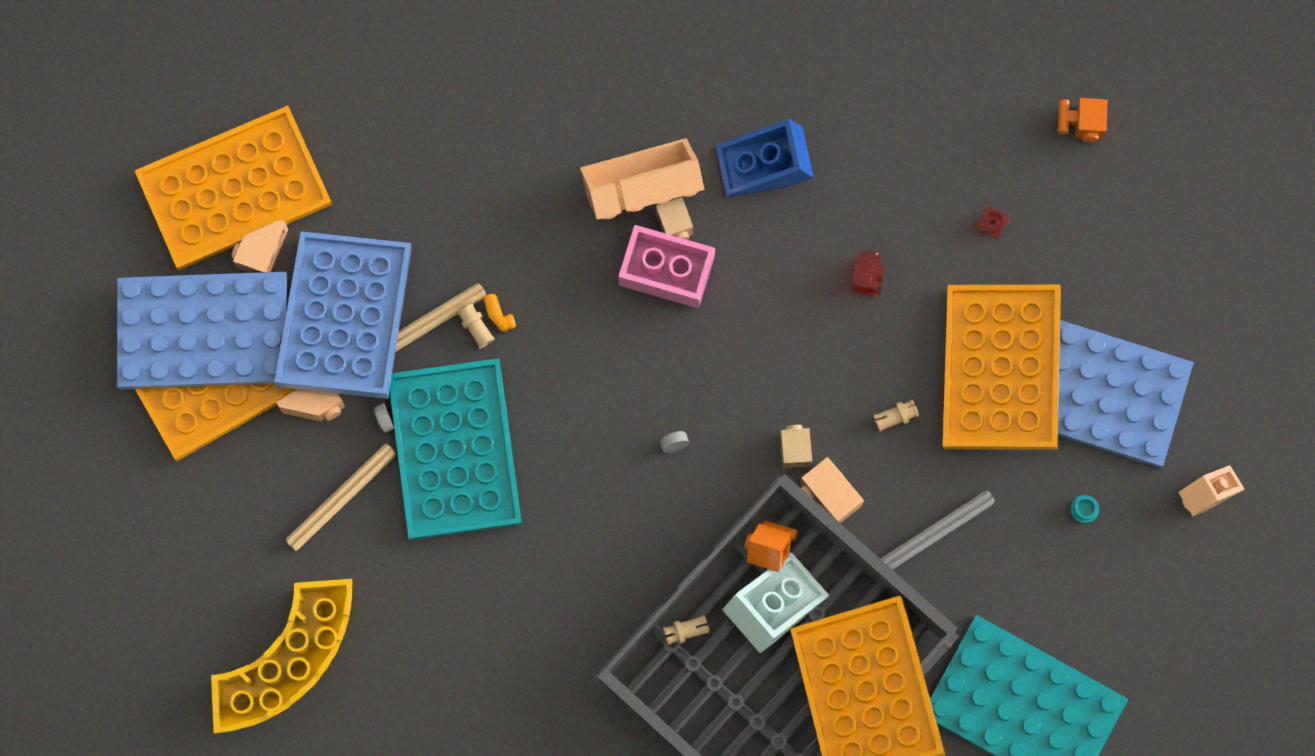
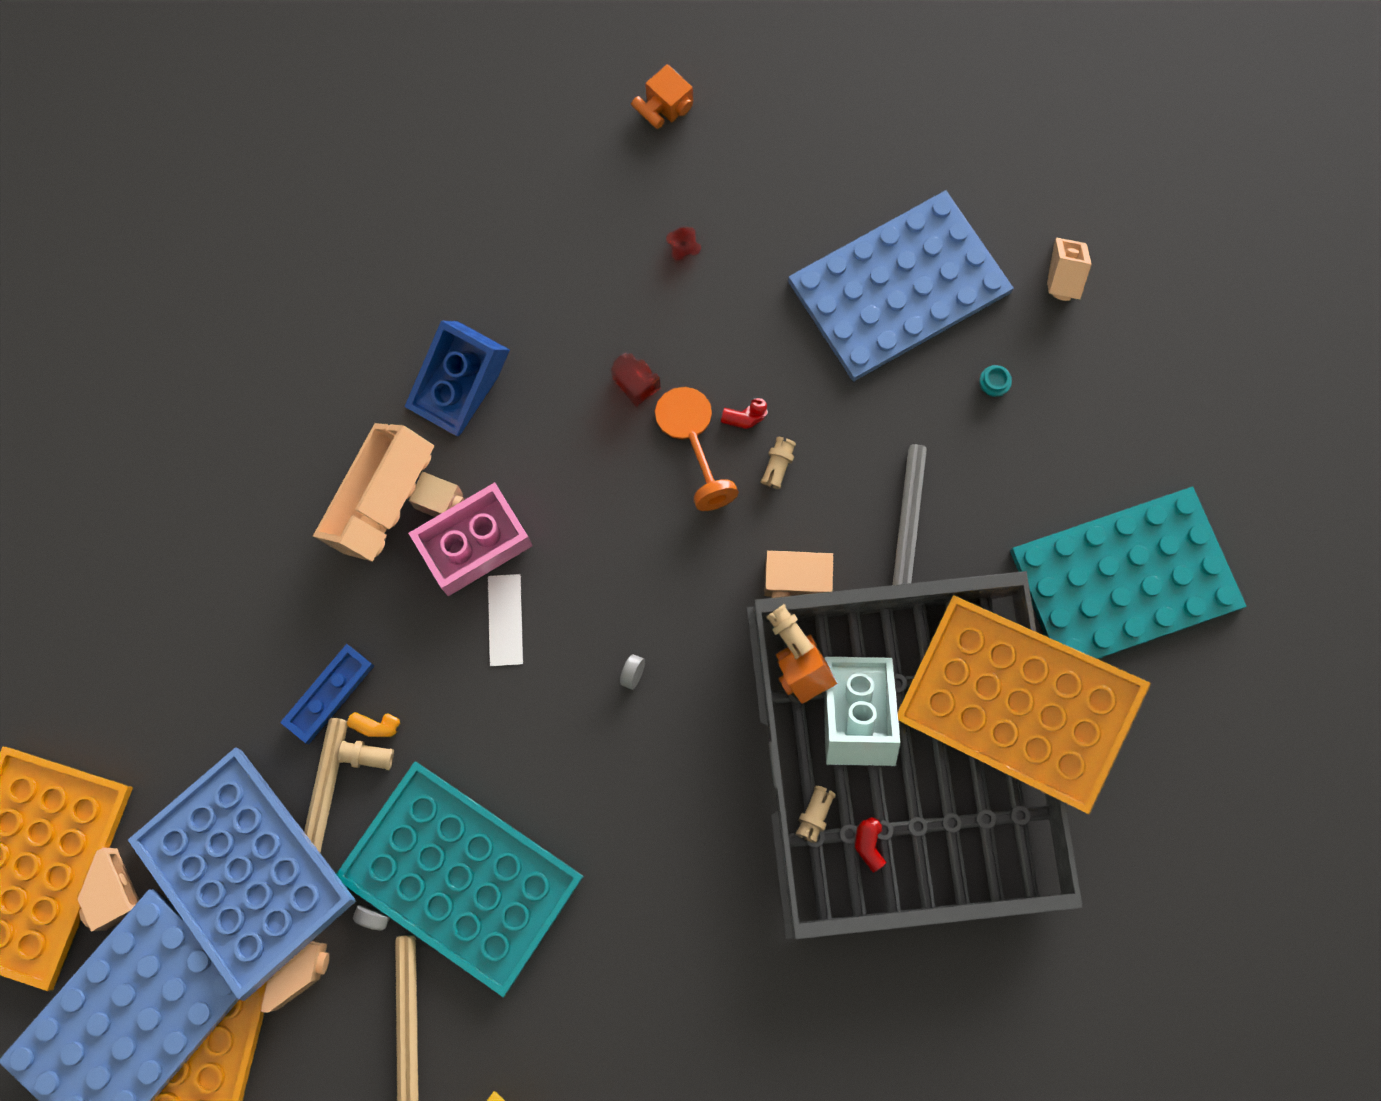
camera: 45 degrees left, 0 degrees up
(492, 268) = (327, 694): none -> blue plate
(636, 334) = (505, 620): none -> white sticker
(695, 676) = (866, 841): none -> red arm
(783, 508) = (789, 631): none -> tan pin
(795, 447) = (731, 570): tan brick -> none
(873, 327) = (685, 415): none -> orange piece
(908, 369) = (748, 417): none -> red arm
(1002, 367) = (818, 339): light orange plate -> none

